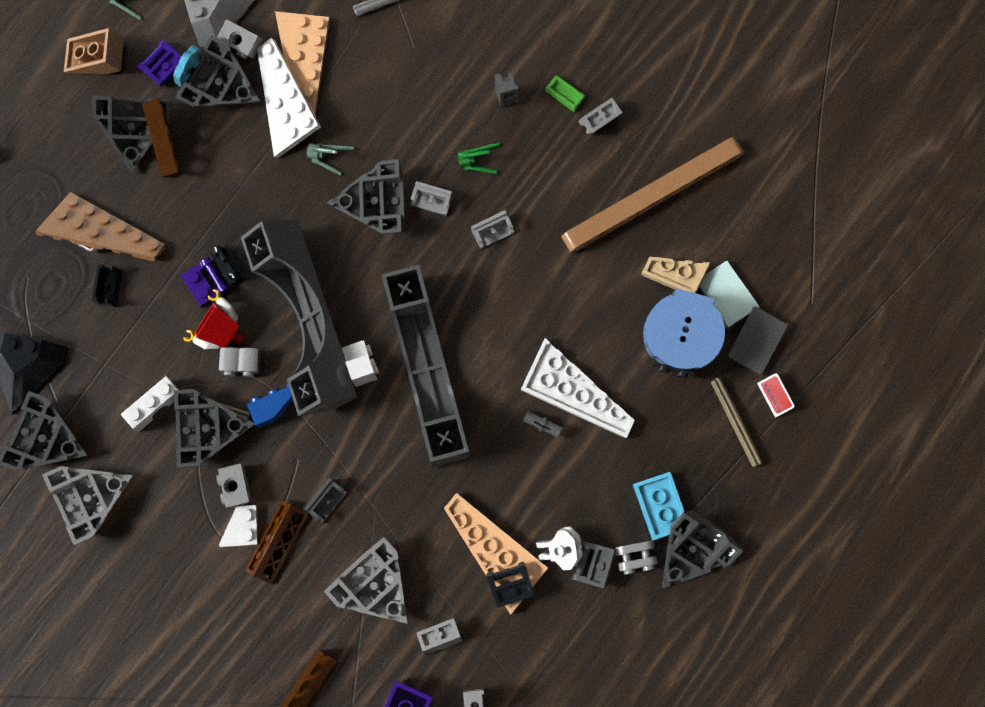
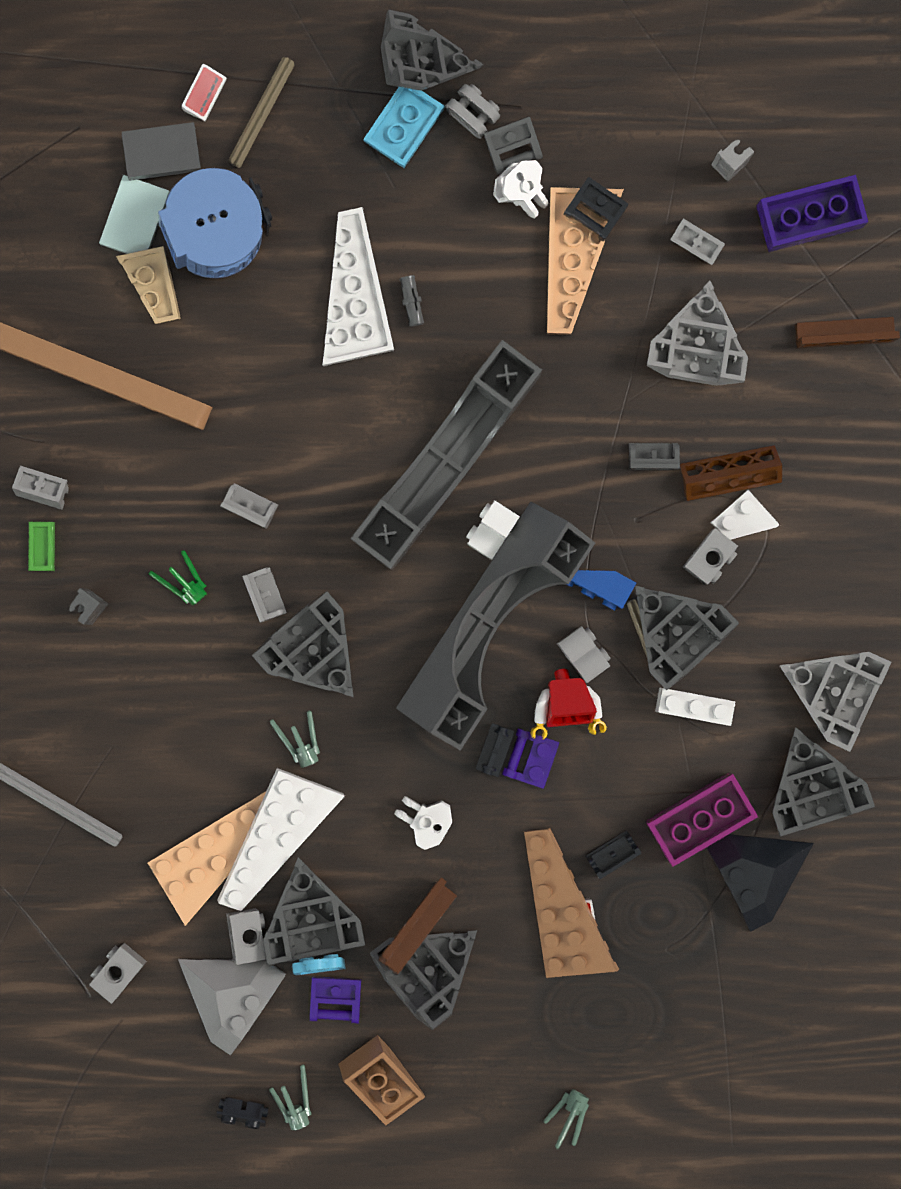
camera: 130 degrees left, 10 degrees up
(81, 353) = (701, 819): none -> magenta brick
(216, 191) = (424, 821): none -> white hinge

